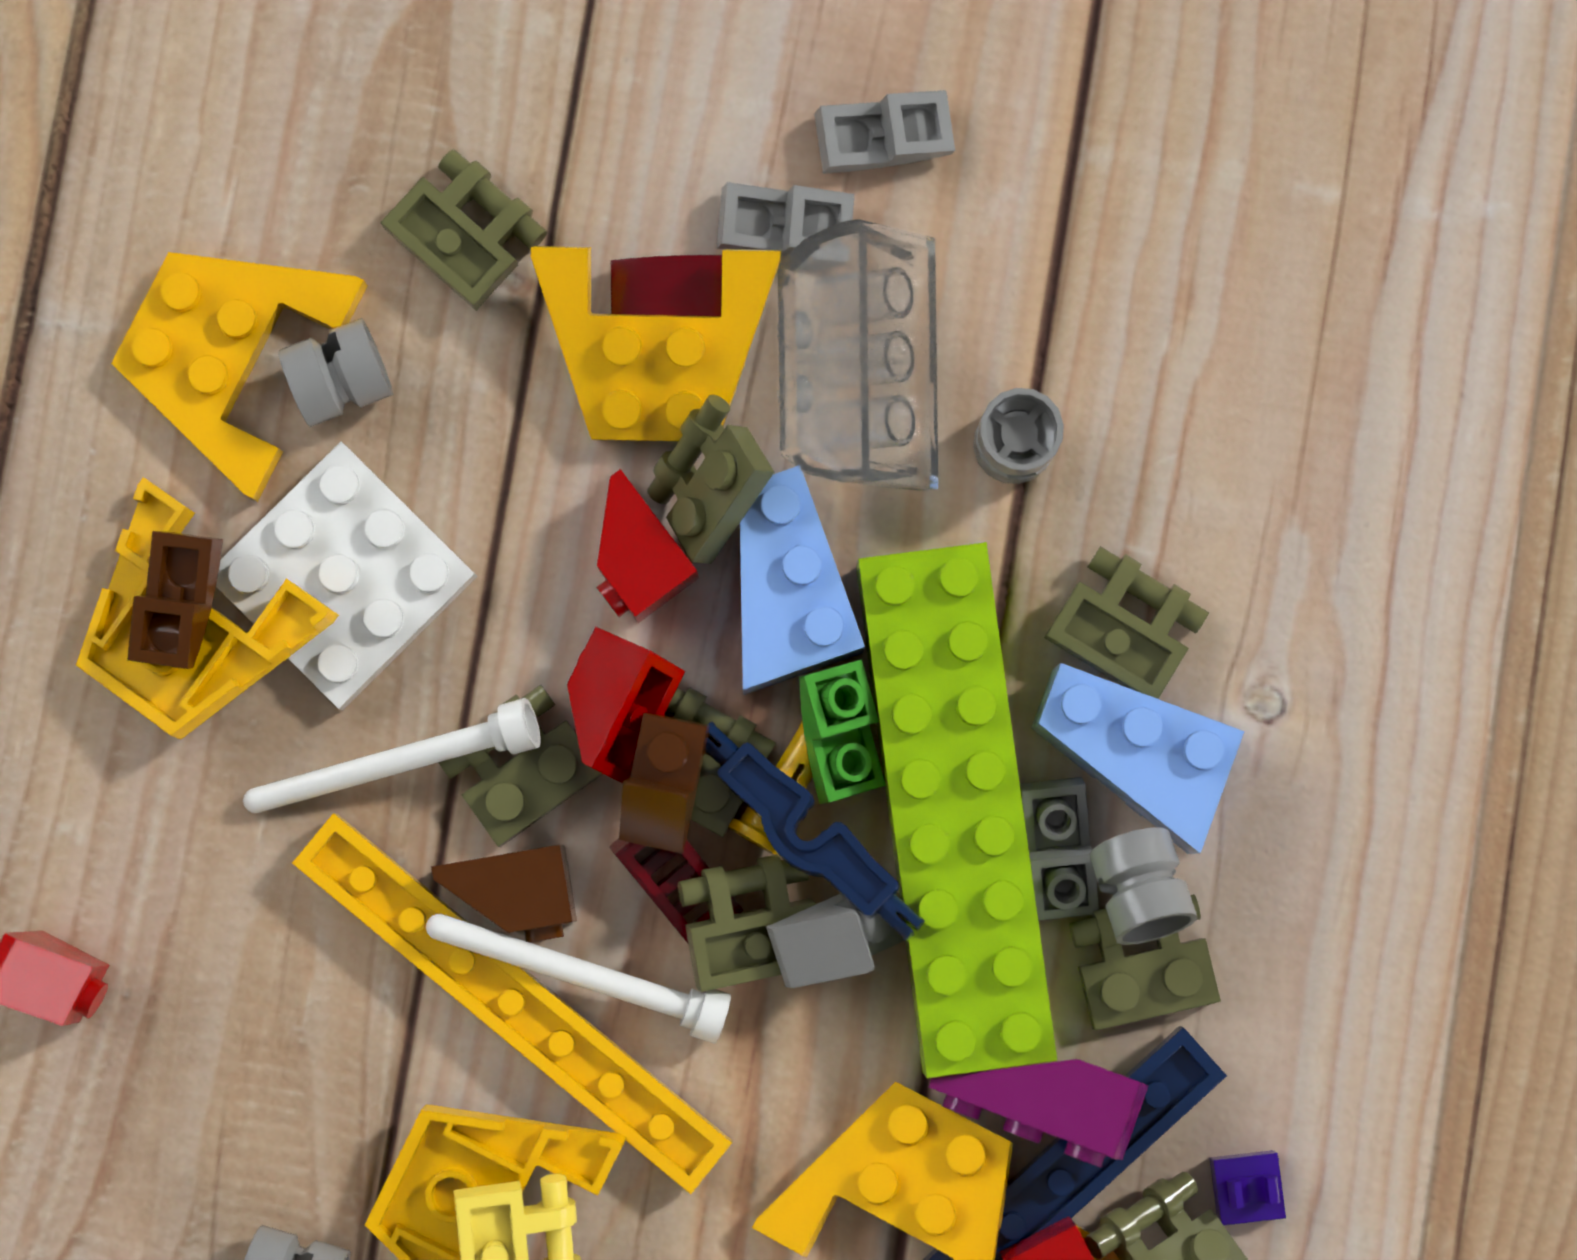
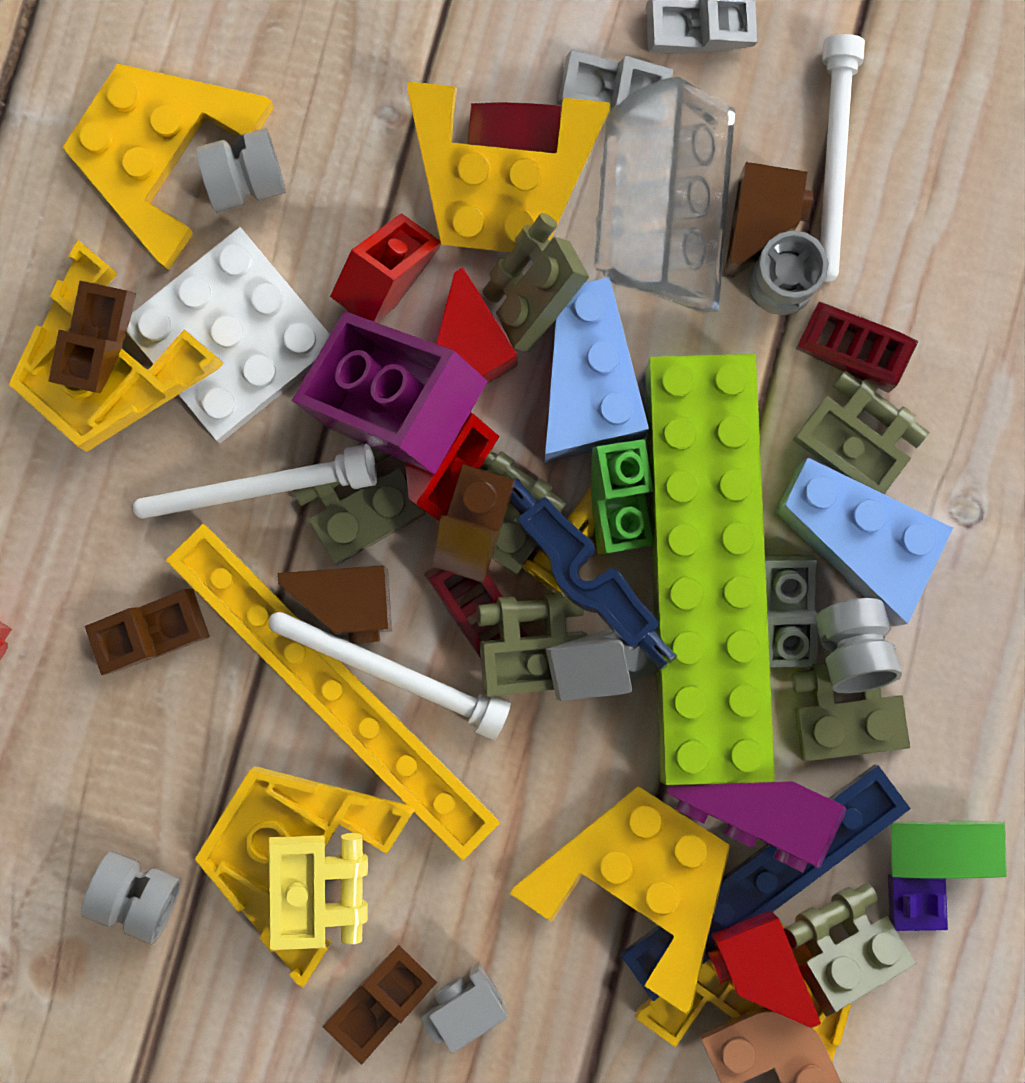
camera: 10 degrees right, 0 degrees up
(277, 952) = (147, 631): none -> reddish brown slope
(452, 243) = (344, 77): olive plate -> none
(524, 476) = (384, 268): none -> red slope
(546, 632) = (390, 391): none -> magenta brick
(984, 358) = (766, 204): none -> reddish brown slope
(1061, 162) = (842, 57): none -> white piece
(1142, 501) = (880, 335): none -> dark red slope
(1277, 1120) = (948, 849): none -> bright green slope

